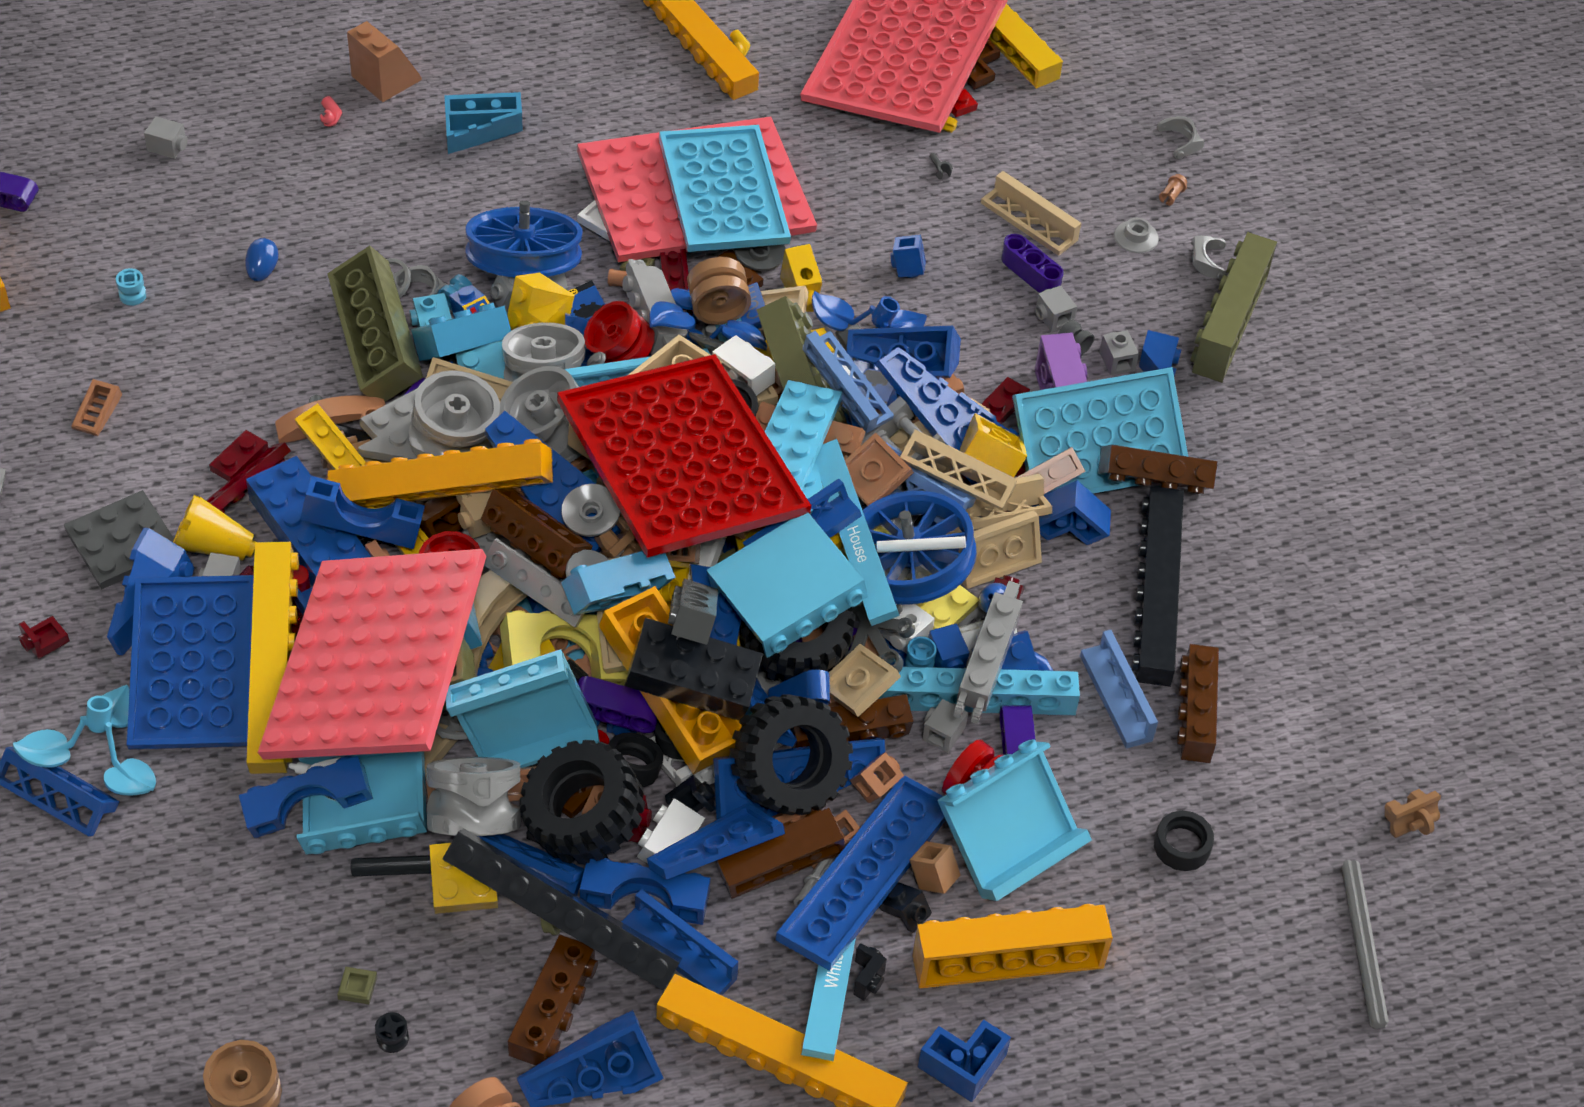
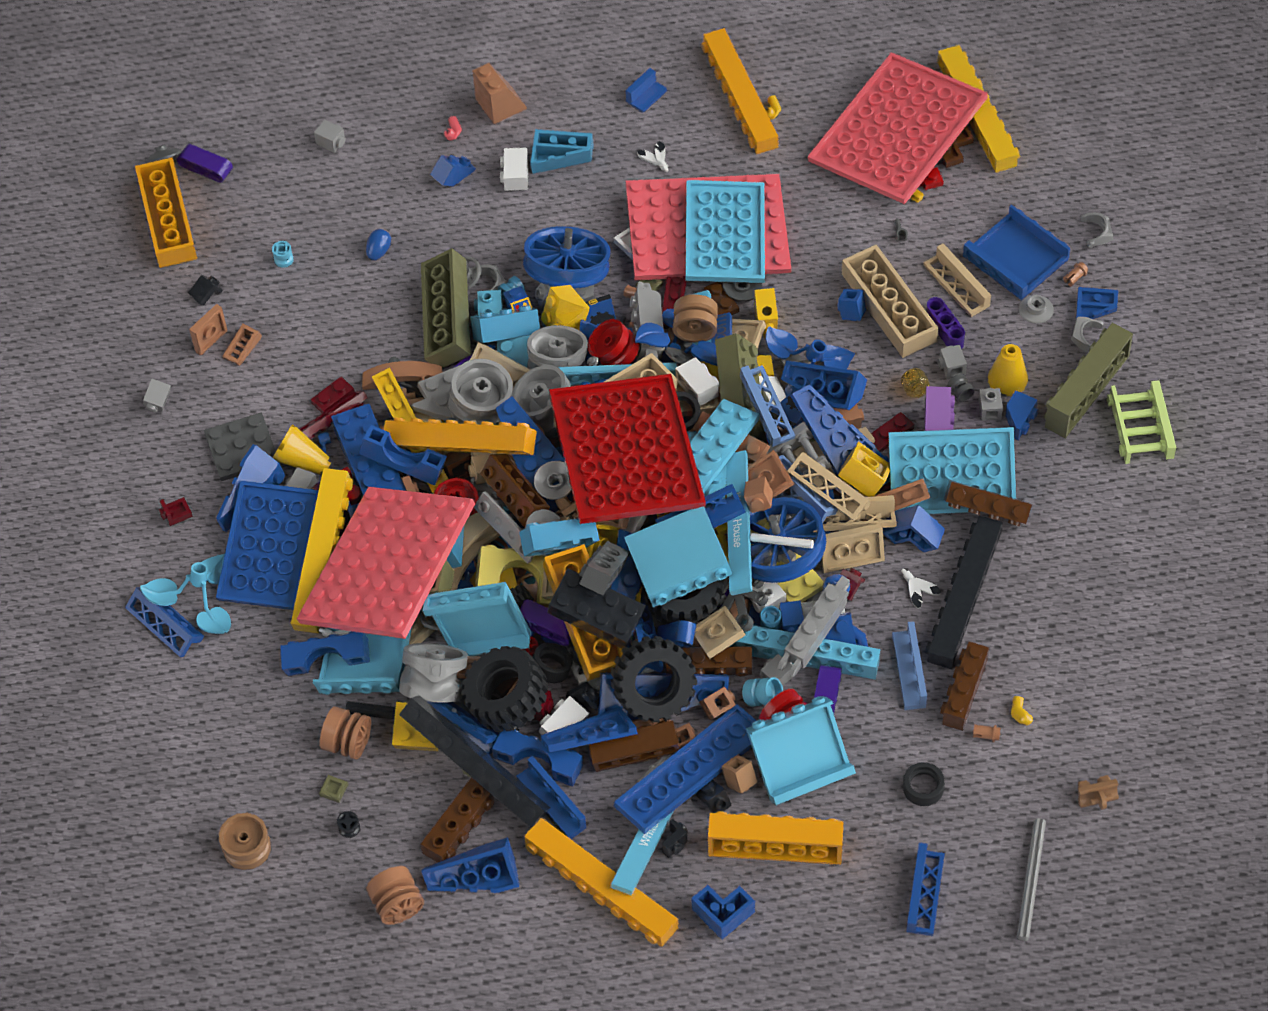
camera: 20 degrees right, 5 degrees up
(28, 343) = (204, 288): none -> black bracket
(46, 392) = (208, 329): none -> nougat plate
(239, 513) = (324, 439): none -> blue hand
(341, 158) = (452, 169): none -> blue slope
(367, 902) = (345, 732): none -> nougat wheel
(426, 148) = (515, 169): none -> white brick
(570, 43) = (644, 91): none -> blue panel
(608, 118) = (657, 158): none -> white piece
(872, 491) = (758, 494): none -> nougat brick
(934, 752) = (760, 691): none -> medium azure wheel
(957, 246) = (890, 301): none -> tan brick
(1016, 339) = (914, 382): none -> clear yellow head
(1094, 173) = (1017, 253): none -> blue panel
(1094, 588) = (916, 586): none -> white piece
(1131, 307) = (1008, 371): none -> yellow cone
(1208, 218) = (1096, 302): none -> blue wing
(1222, 986) = (918, 885): none -> blue fence
(1244, 759) = (986, 732): none -> nougat pin
(1277, 728) = (1019, 713): none -> yellow arm
(1328, 333) = (1157, 411): none -> yellowish green fence

